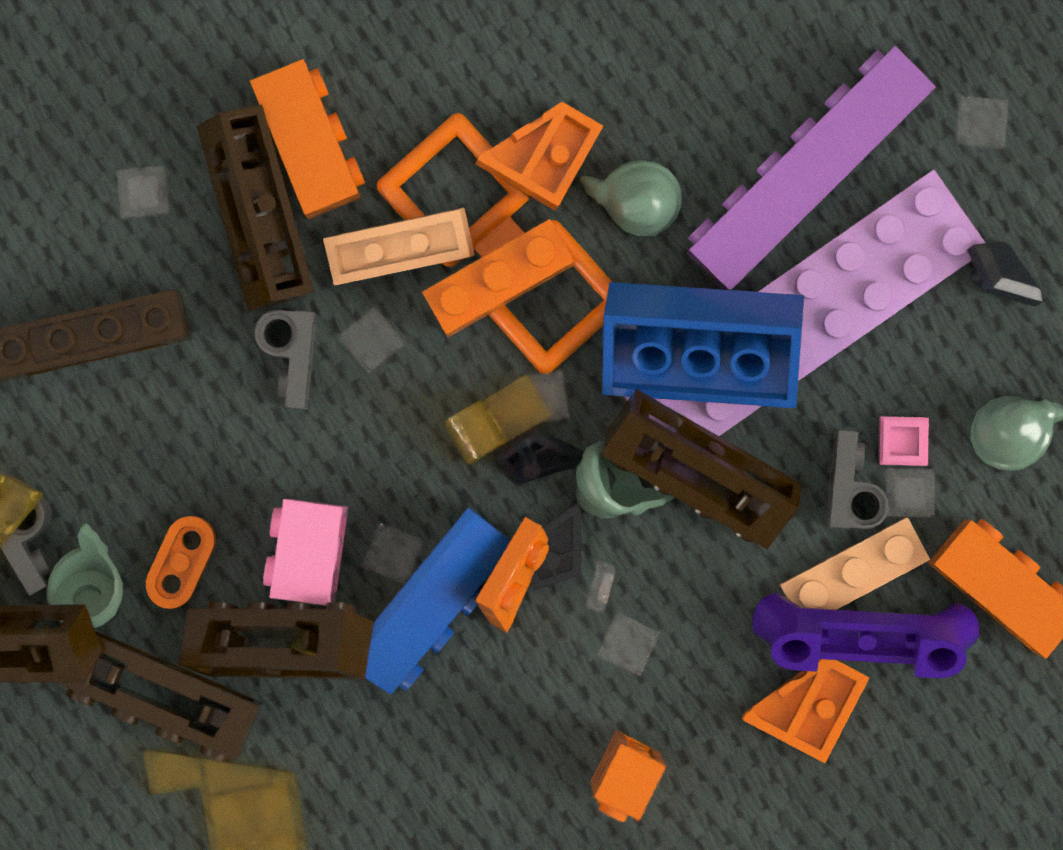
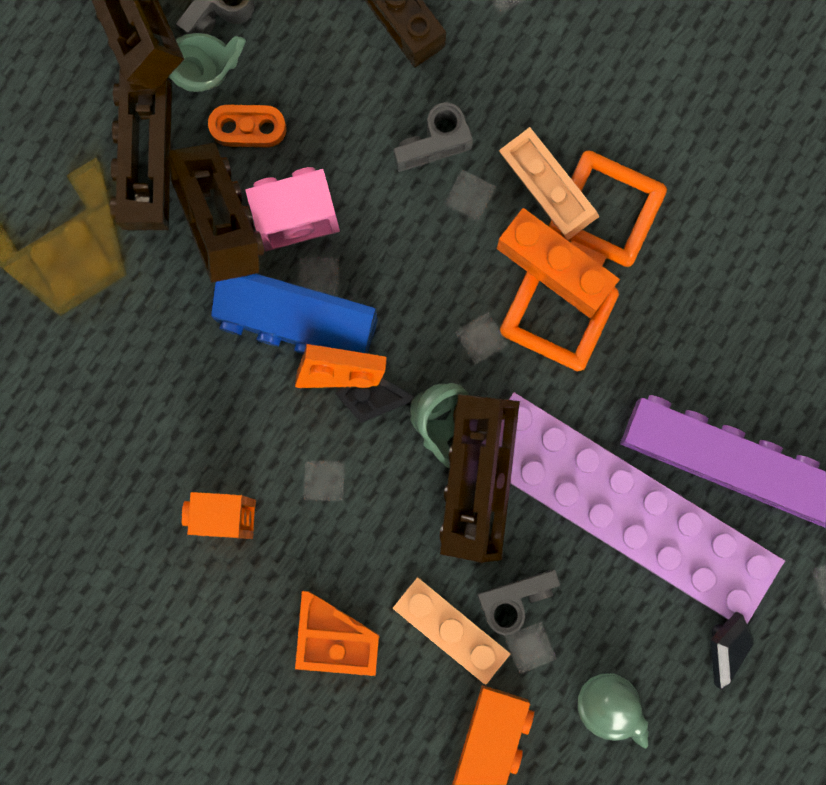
camera: 75 degrees right, 5 degrees down
(254, 207) = (531, 66): dark brown brick -> none
(308, 138) = (598, 85): orange brick -> none
(497, 419) = (448, 310): clear yellow plate -> none
(536, 455) = (436, 350): black piece -> none
(544, 154) = (664, 262): orange wing -> none
(600, 586) = (358, 440): clear tile -> none
(638, 196) = (663, 346): sand green hat -> none
(702, 344) = (575, 437): blue slope -> none
(805, 635) = (421, 710): dark purple plate -> none
(903, 441) = (567, 626): bright pink tile -> none

